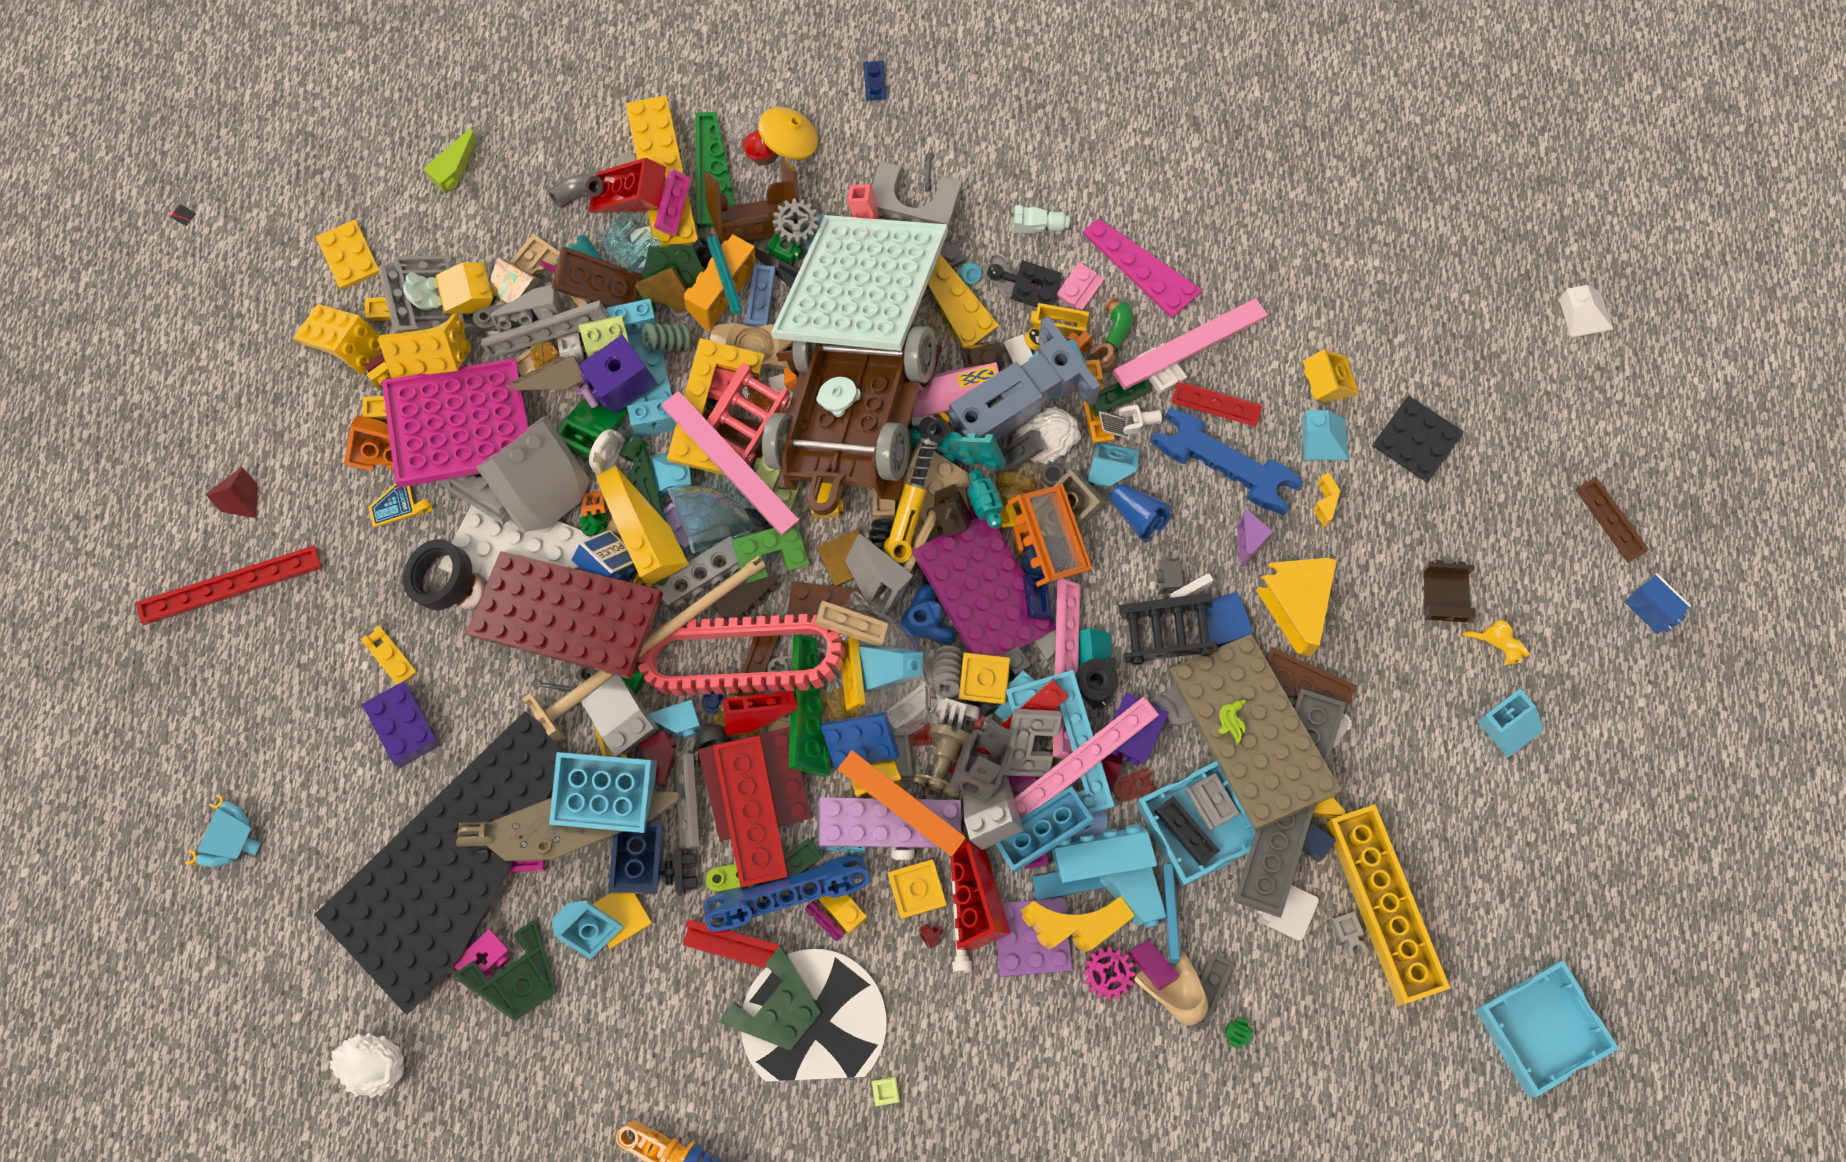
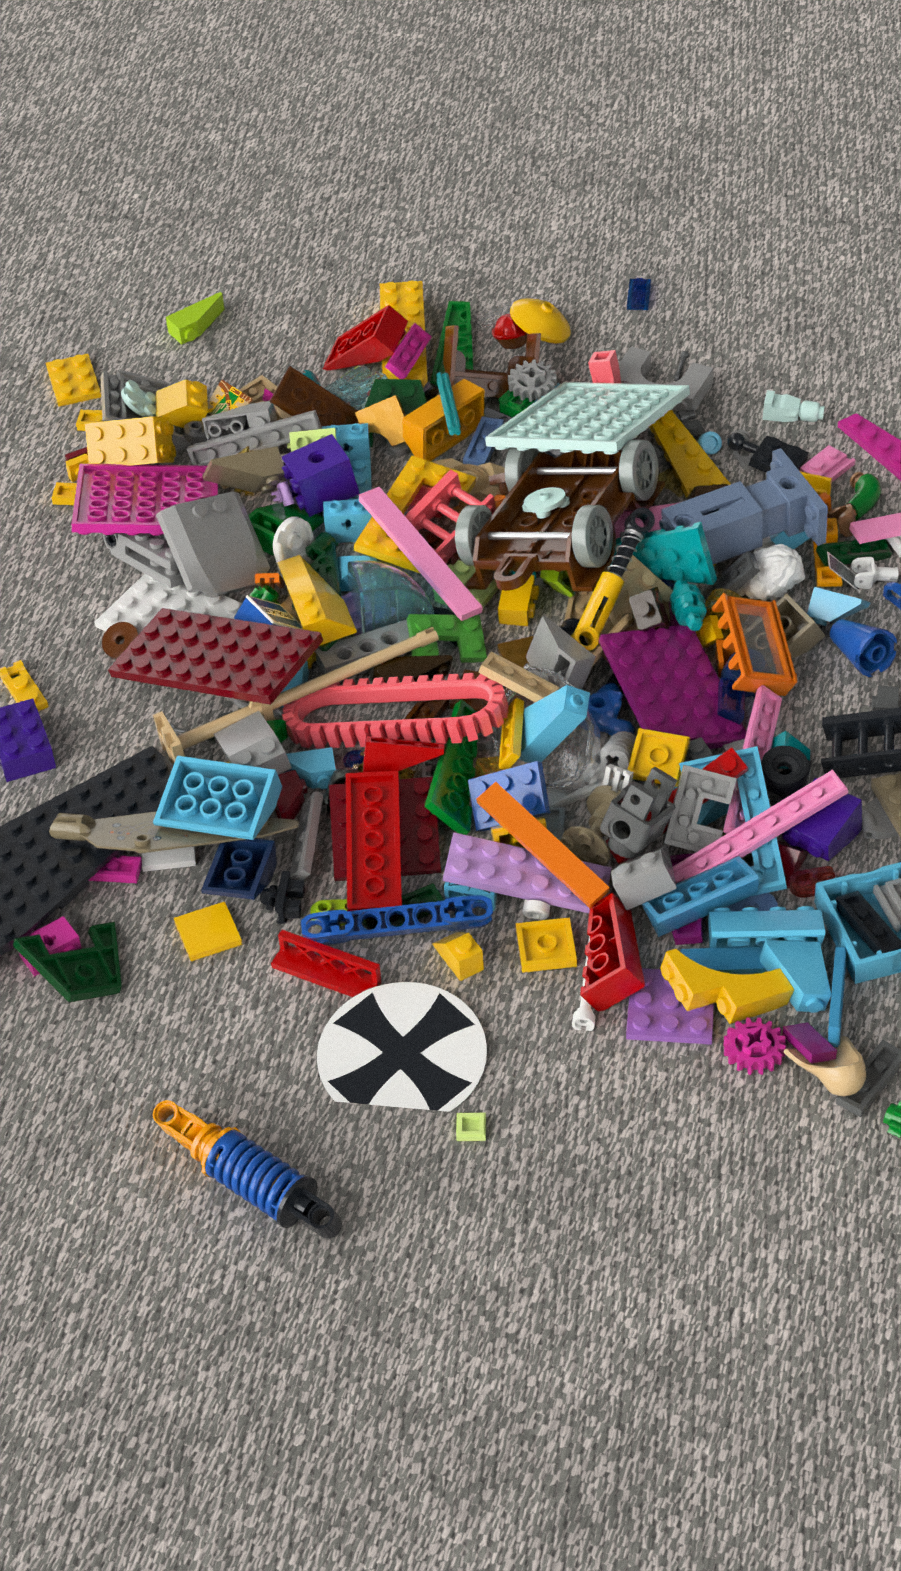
camera: 15 degrees right, 25 degrees down
(341, 335) = (53, 430): yellow bracket -> none
(368, 444) = (52, 520): orange wedge -> none
(396, 505) = (71, 568): flag -> none
(418, 564) = (99, 633): black tyre -> none
(574, 187) = (313, 345): flat silver cylinder -> none
(584, 927) = (170, 927): medium azure slope -> none
(665, 336) = (377, 458): sand green piece -> none
(784, 1014) = (370, 1032): dark green wing -> none
(824, 920) = (435, 962): magenta axle -> none
(921, 737) = (576, 814): clear red slope -> none
(930, 935) = (552, 987): dark red tile -> none

